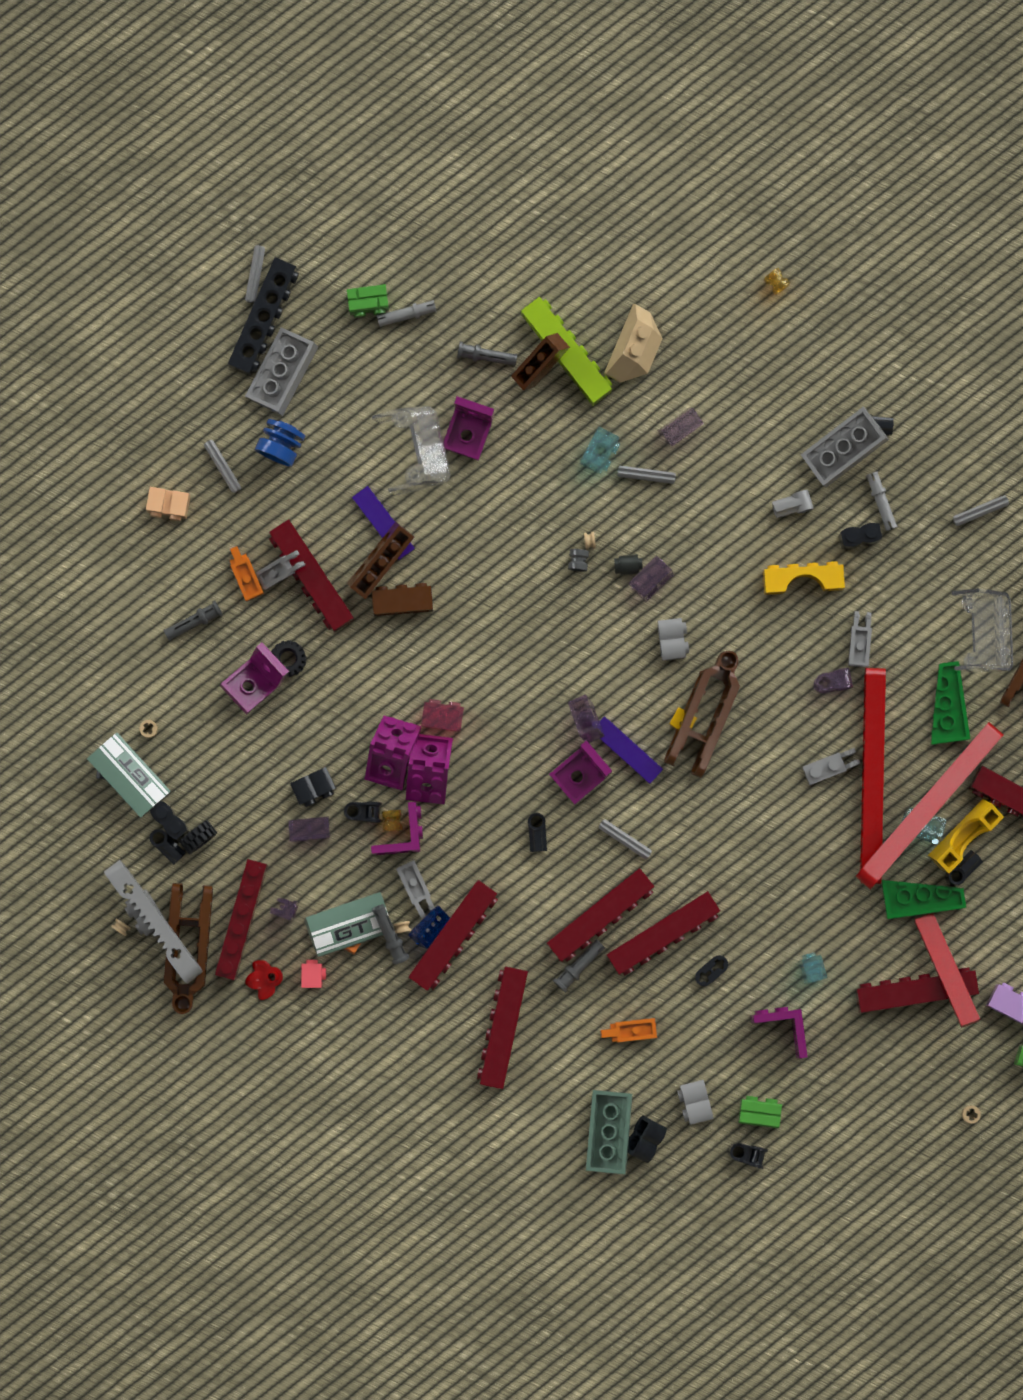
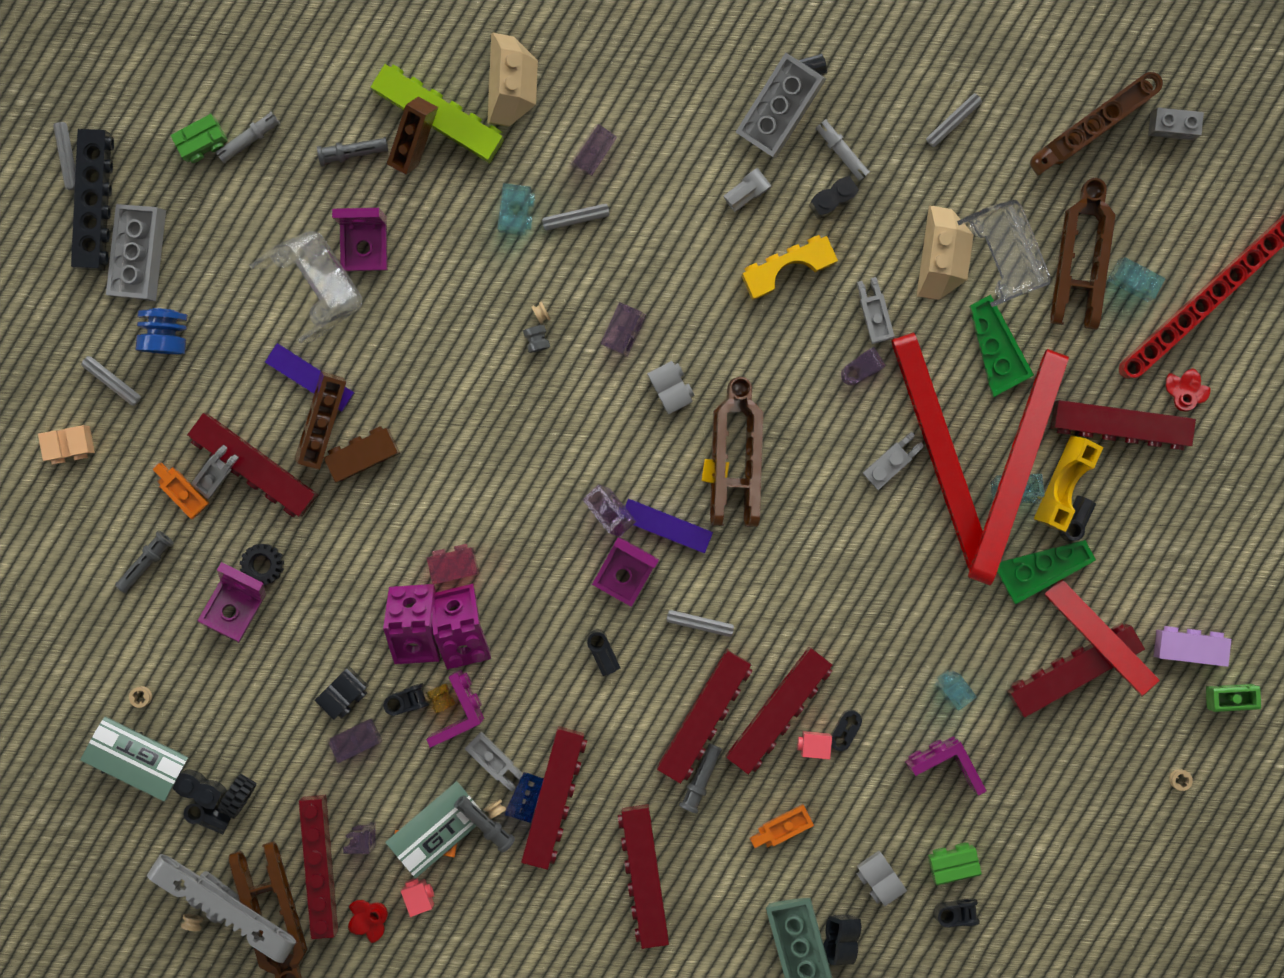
camera: 15 degrees left, 5 degrees up
(628, 564) = (592, 323): pearl dark grey brick -> none
(682, 972) = (815, 745): none -> coral brick
(933, 615) = (944, 254): none -> tan wedge

